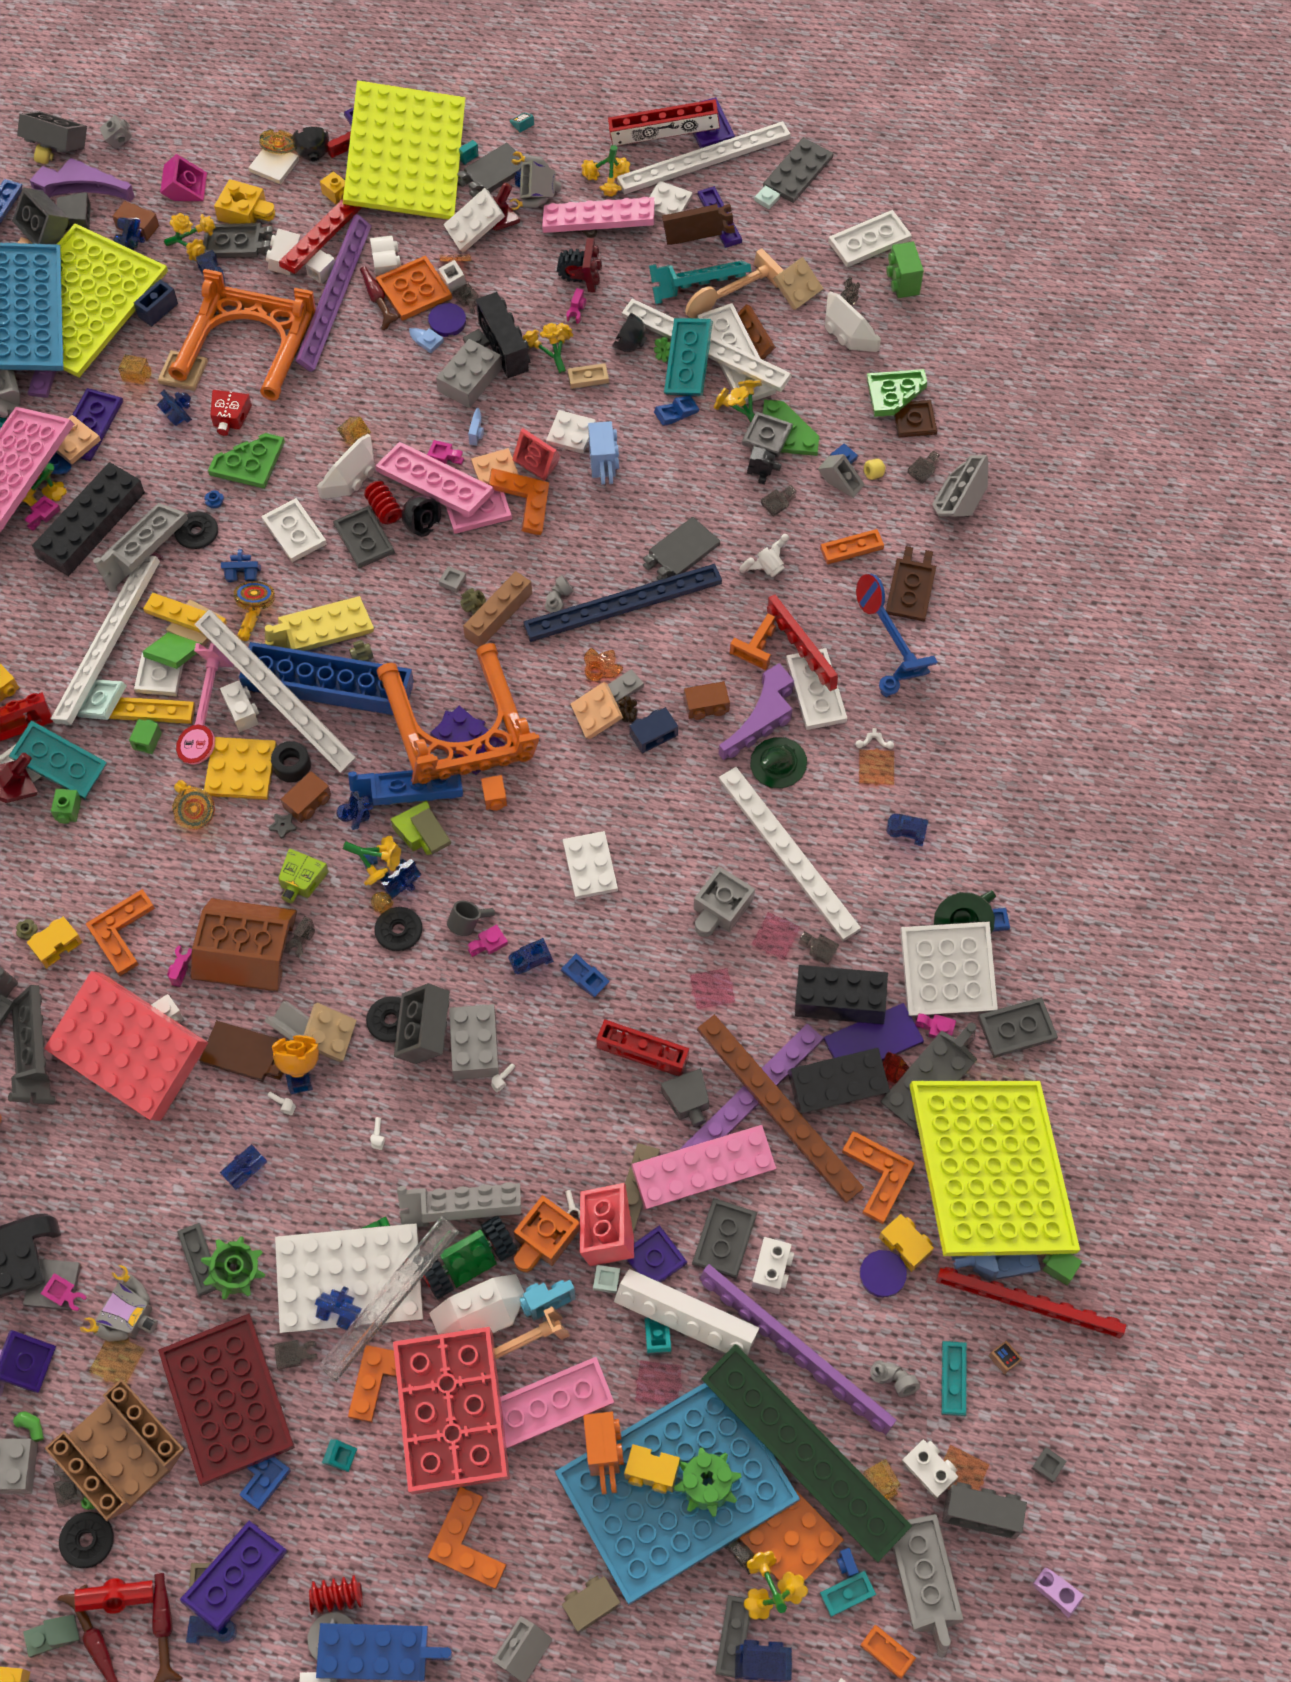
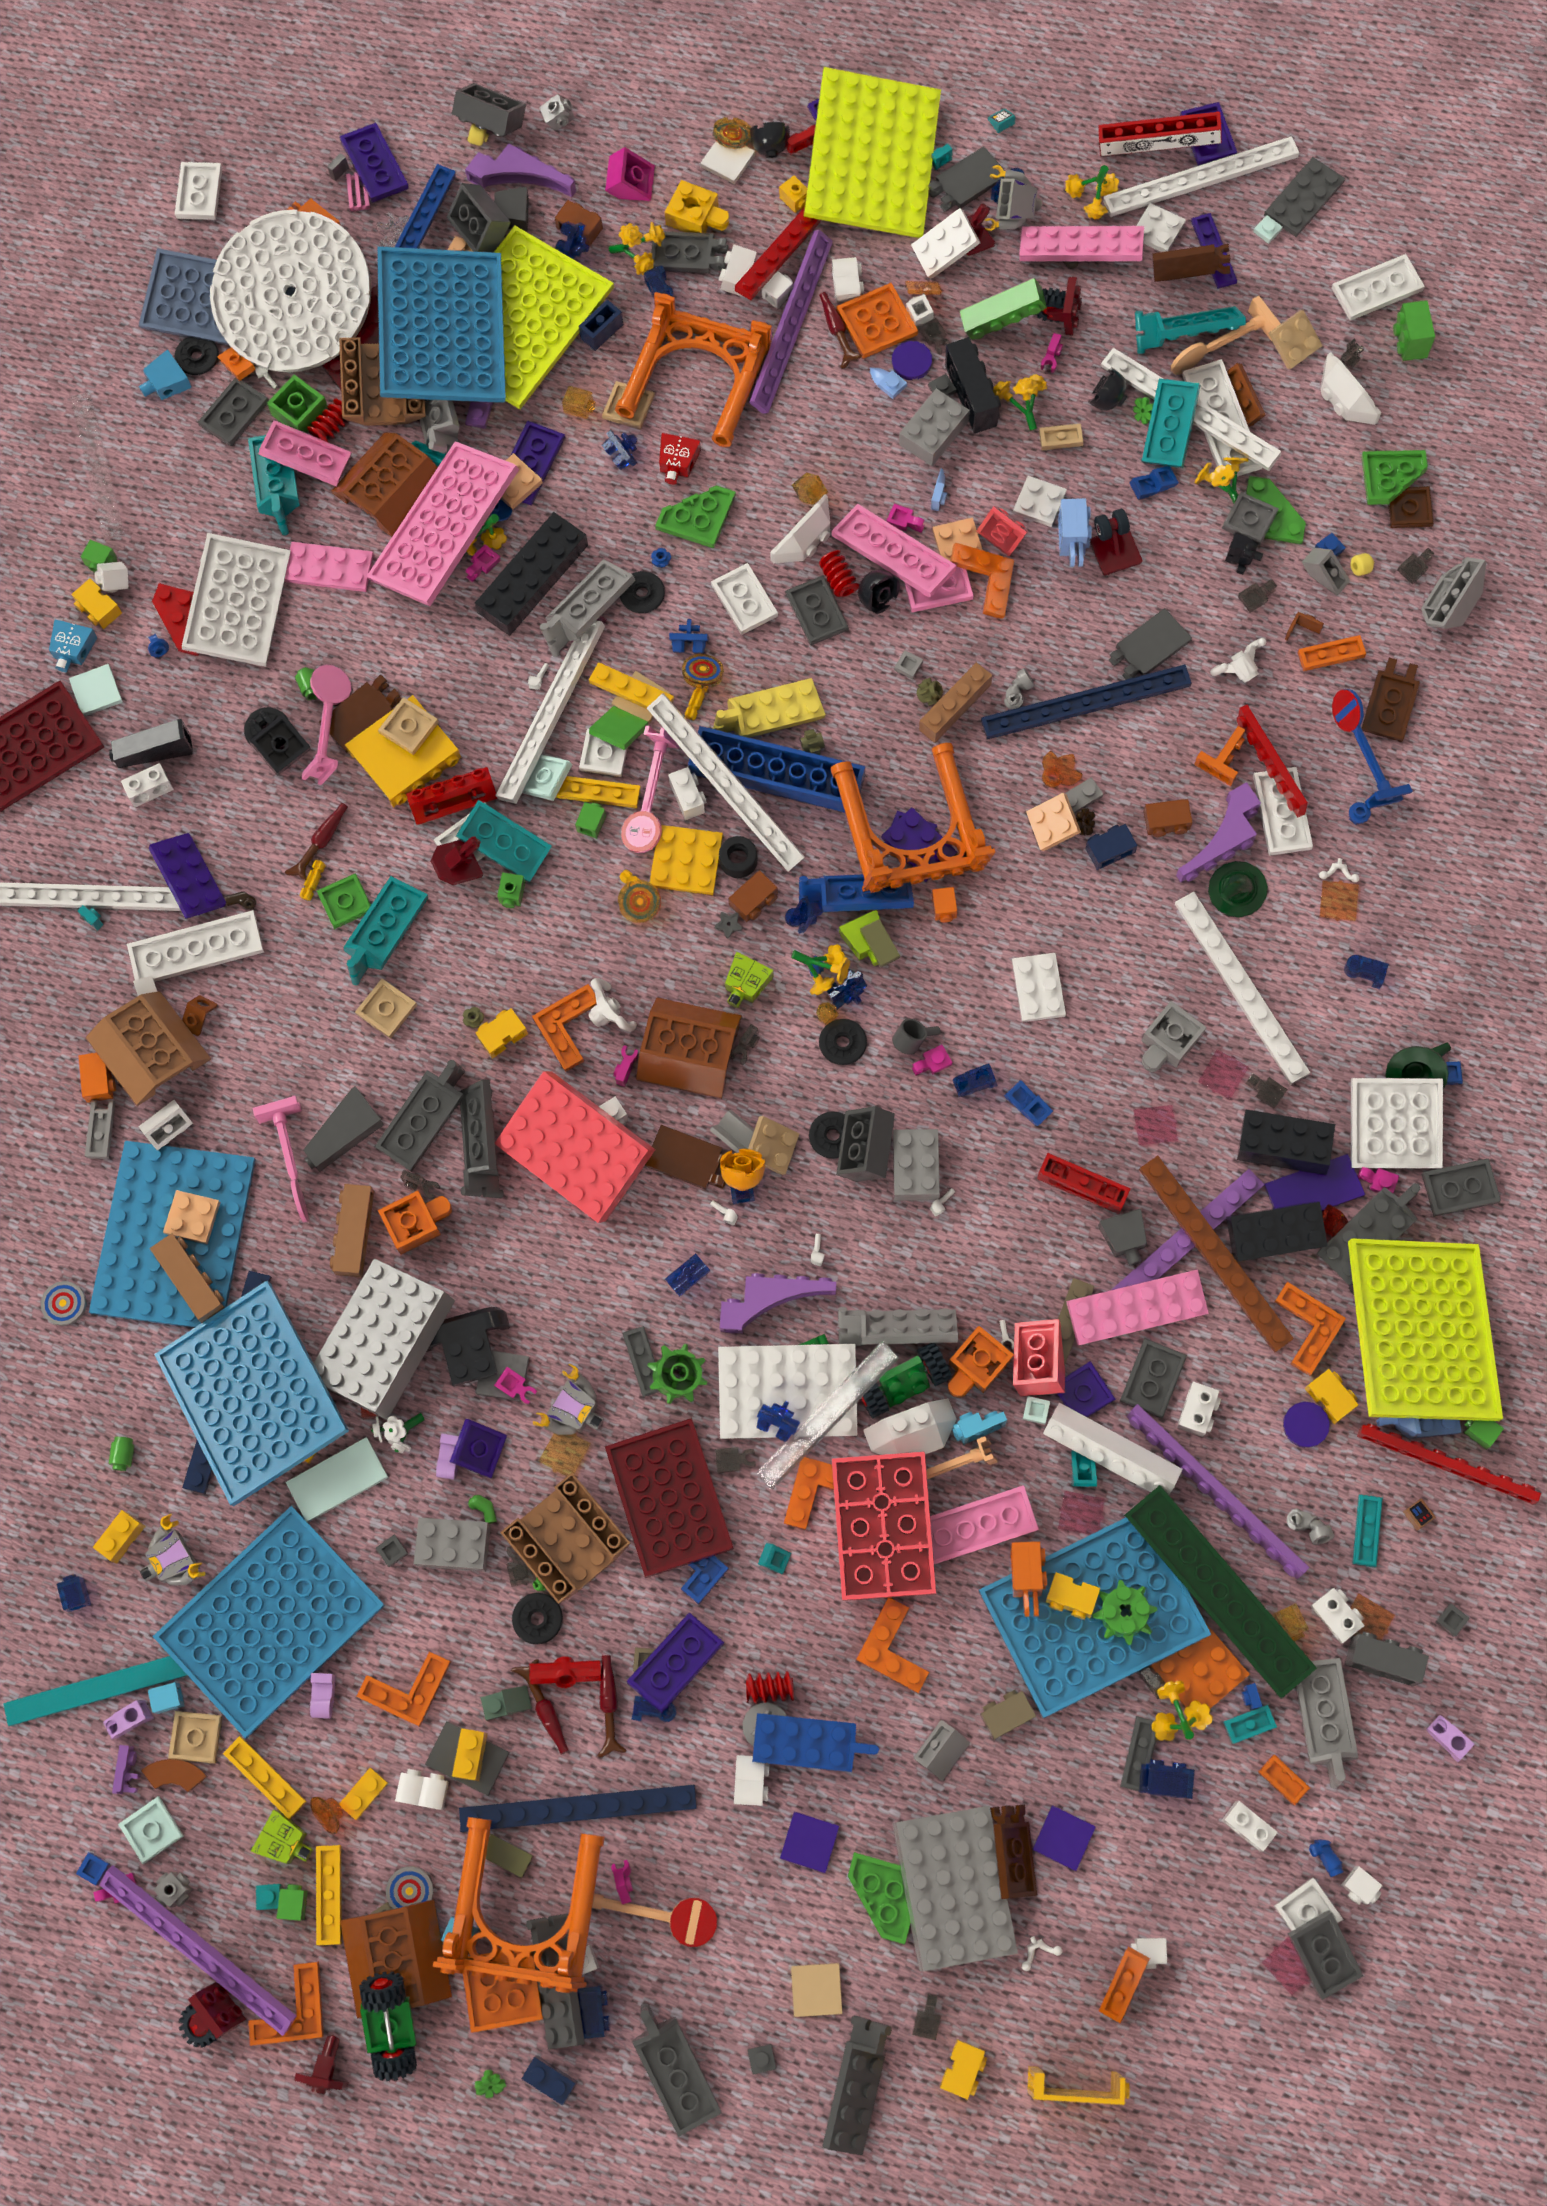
camera: 10 degrees right, 10 degrees up
(93, 615) = (535, 682): none -> white hand
(161, 911) = (607, 1008): none -> white piece
(323, 1181) = (767, 1293): none -> medium lavender arch
(528, 269) = (1003, 309): none -> brick
(642, 467) = (1114, 544): none -> dark red plate
(826, 520) = (1306, 621): none -> dark orange bracket

